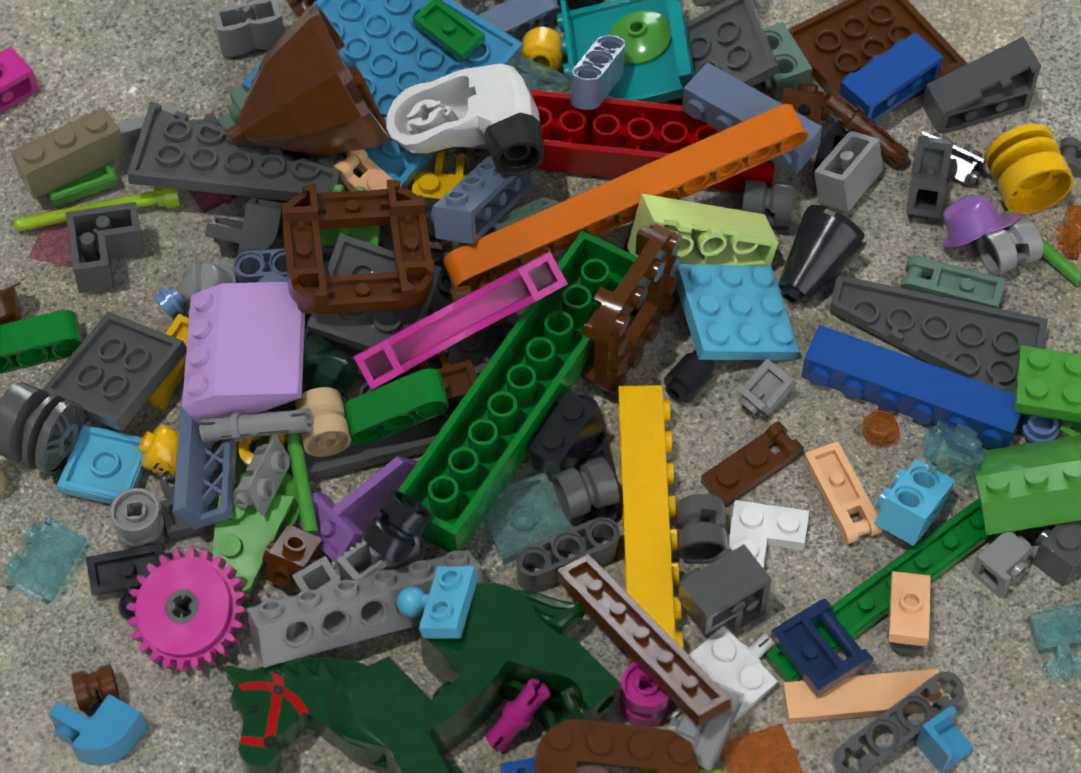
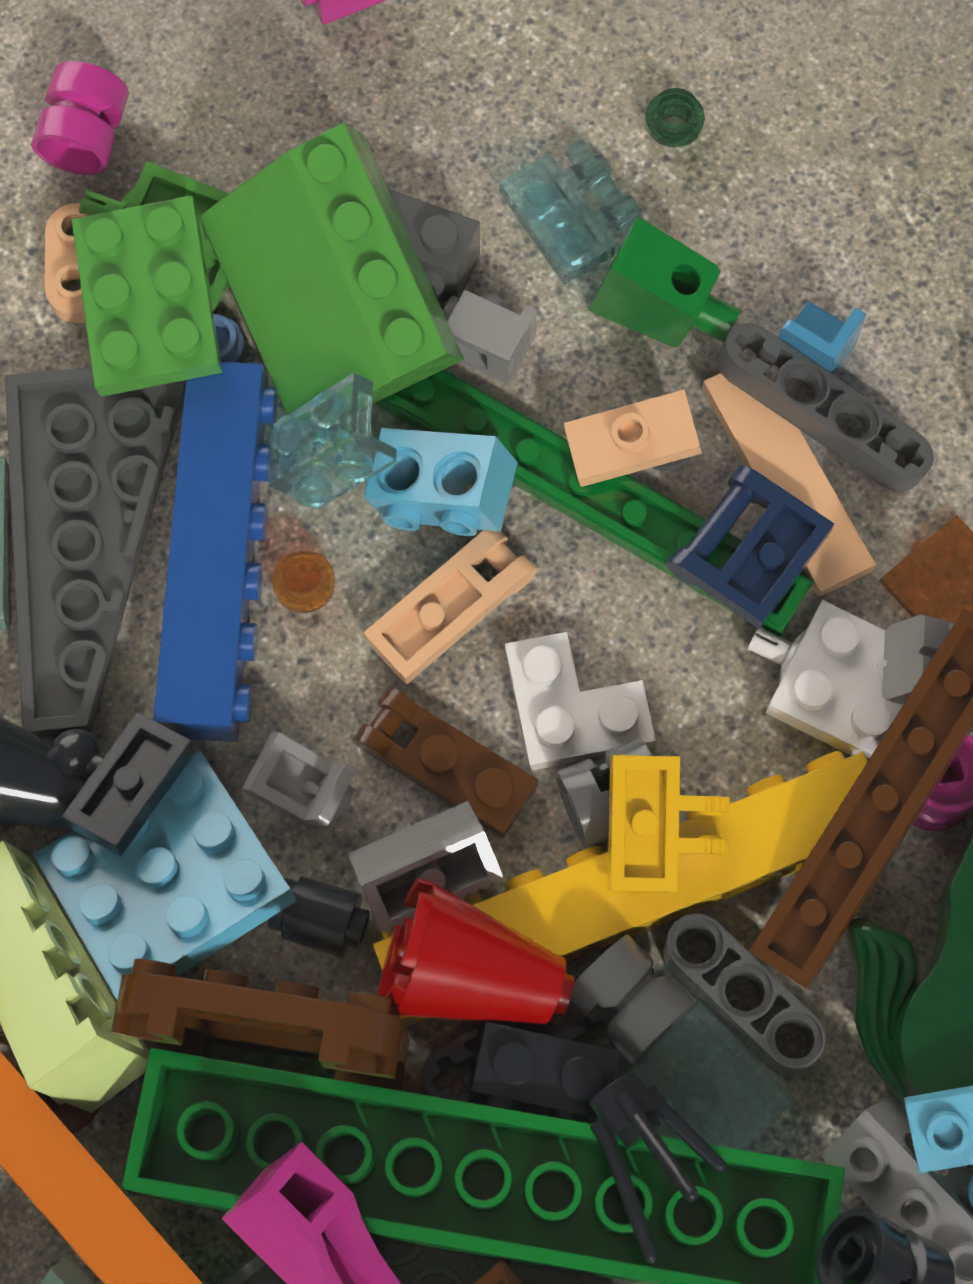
camera: 110 degrees left, 15 degrees up
(524, 440) = (630, 1113): none -> black plant
(631, 406) = (469, 965): none -> red cone
(673, 518) = (646, 823): none -> yellow hinge
(694, 425) = (440, 849): none -> light grey brick
(727, 591) = (737, 703): dark grey brick -> none
(791, 304) = (122, 784): none -> black plate
(1002, 656) = (662, 289): none -> green torso

